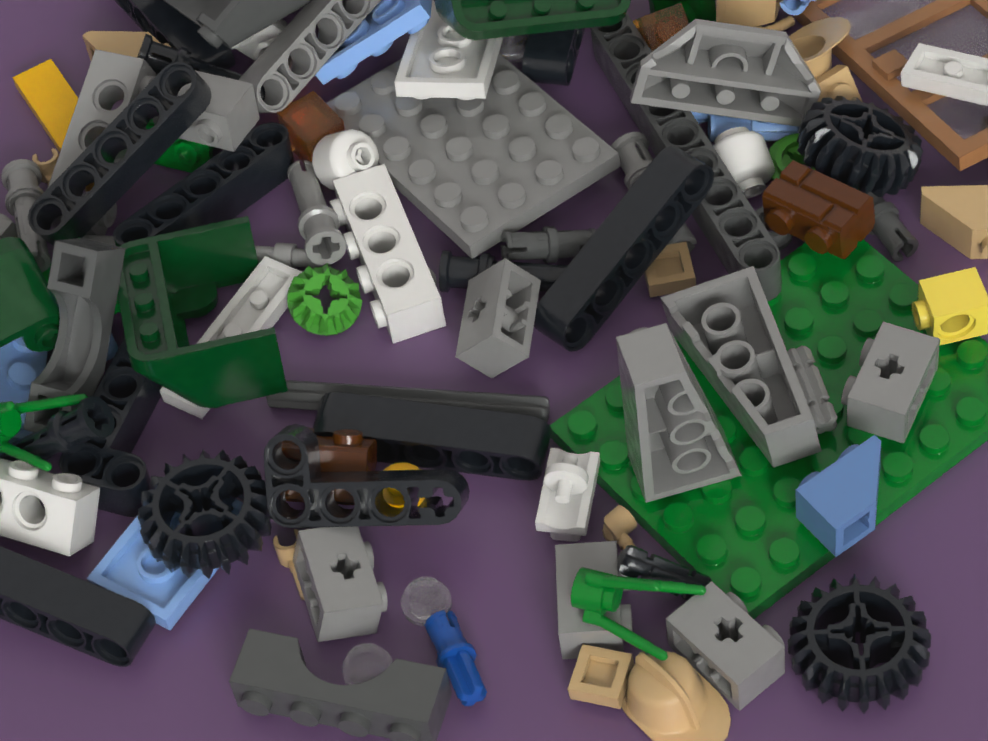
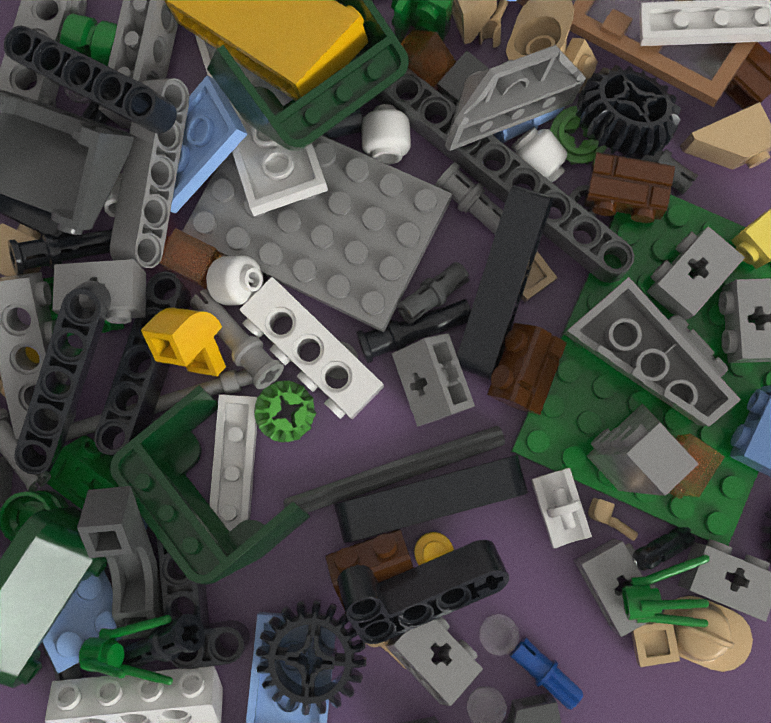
camera: 35 degrees left, 30 degrees up
(269, 177) = (185, 340): none -> yellow brick
(585, 88) = (386, 134): none -> white head
(590, 350) = (526, 368): none -> reddish brown brick
(732, 492) = (699, 477): none -> clear orange brick
(844, 312) = (713, 262): none -> light grey brick

